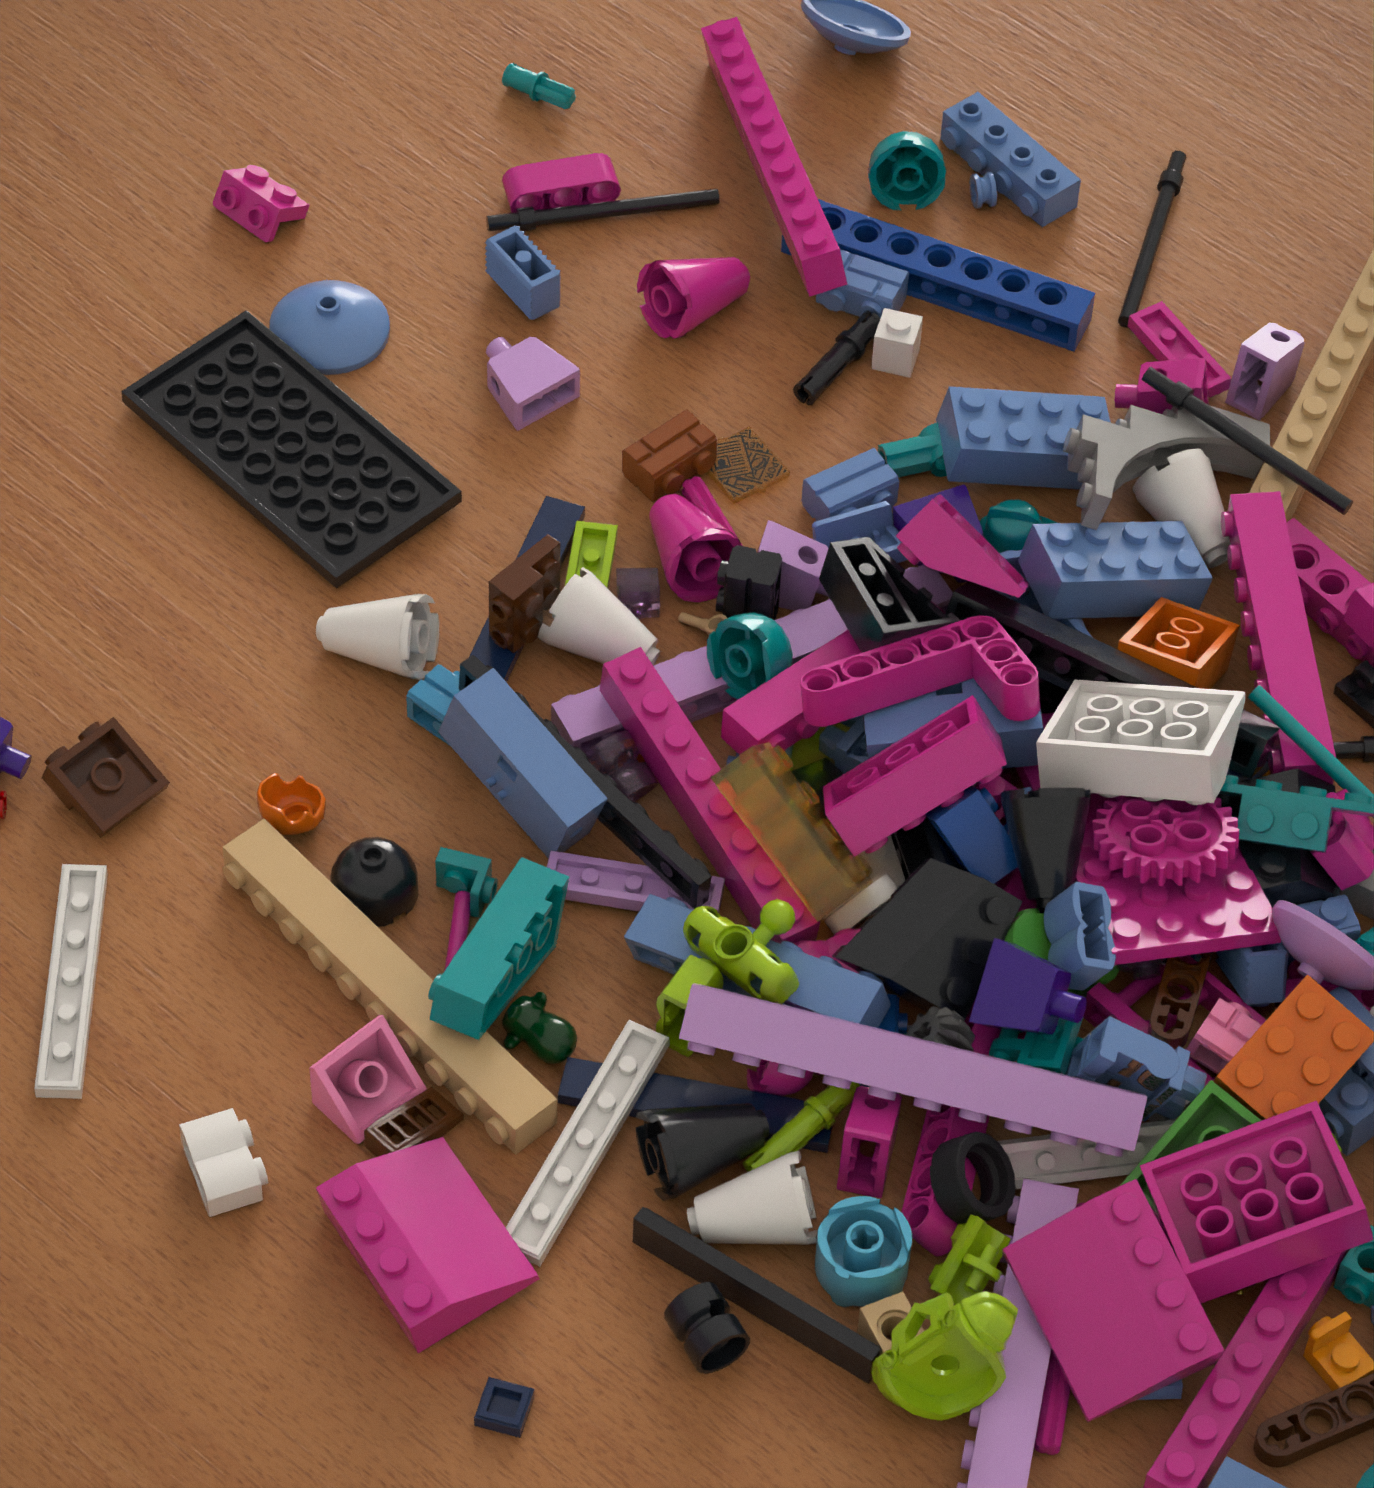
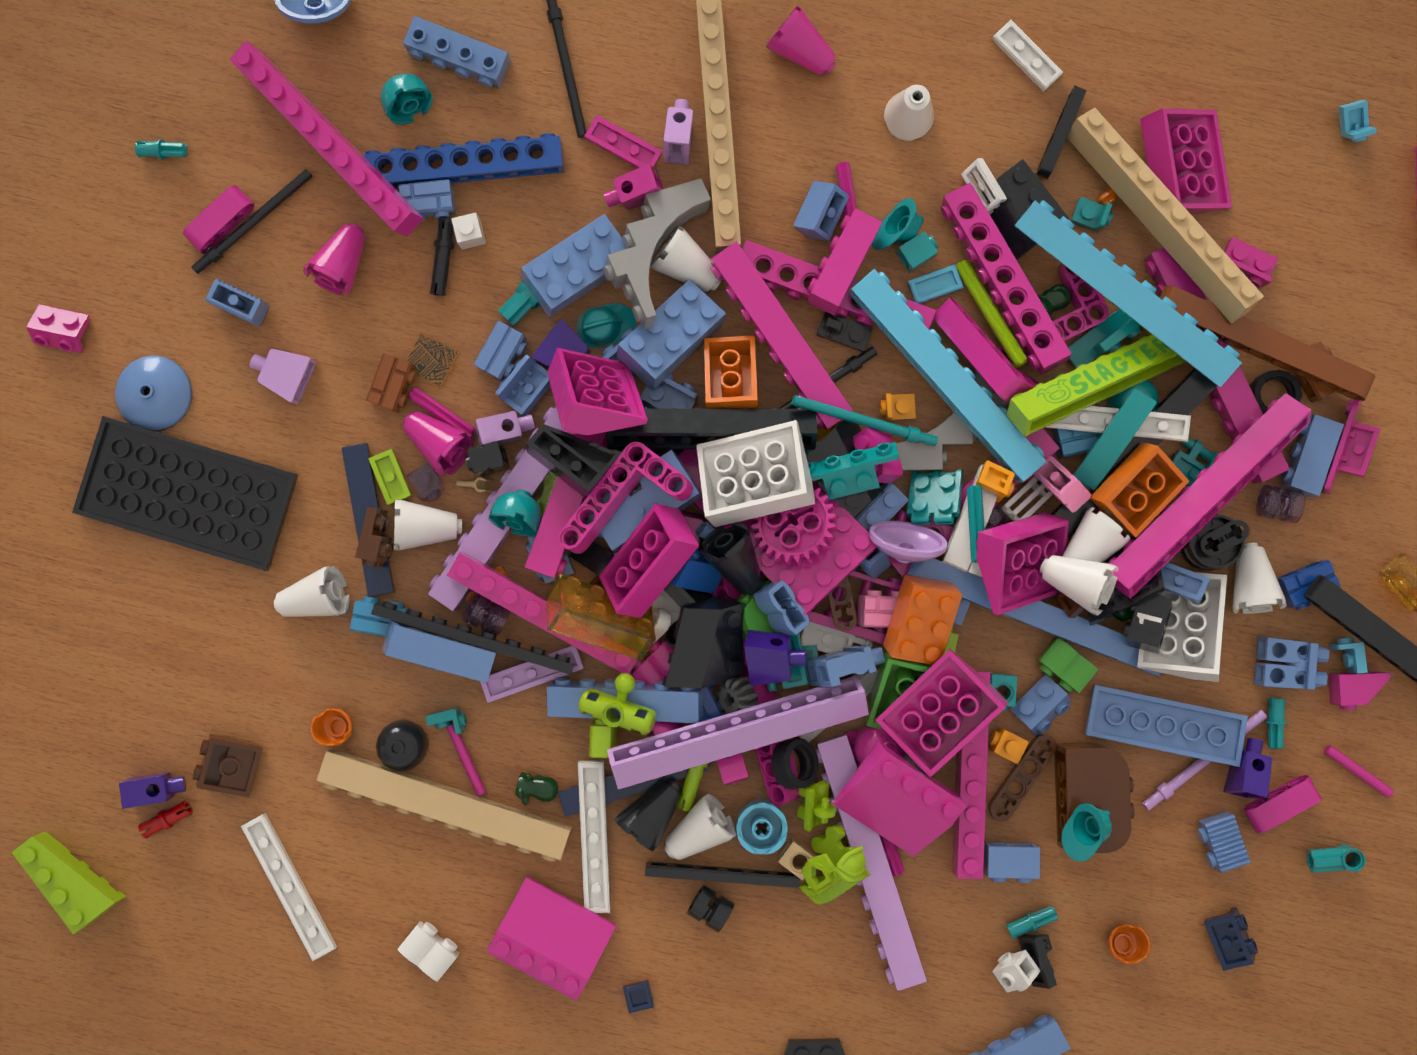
camera: 30 degrees left, 35 degrees up
(364, 1079) = (471, 867): bright pink slope -> none
(379, 1133) = (499, 896): reddish brown slope -> none
(501, 950) = (494, 770): teal wedge -> none
(983, 190) = (454, 84): medium blue bush -> none
(1182, 397) = (649, 200): black bar -> none

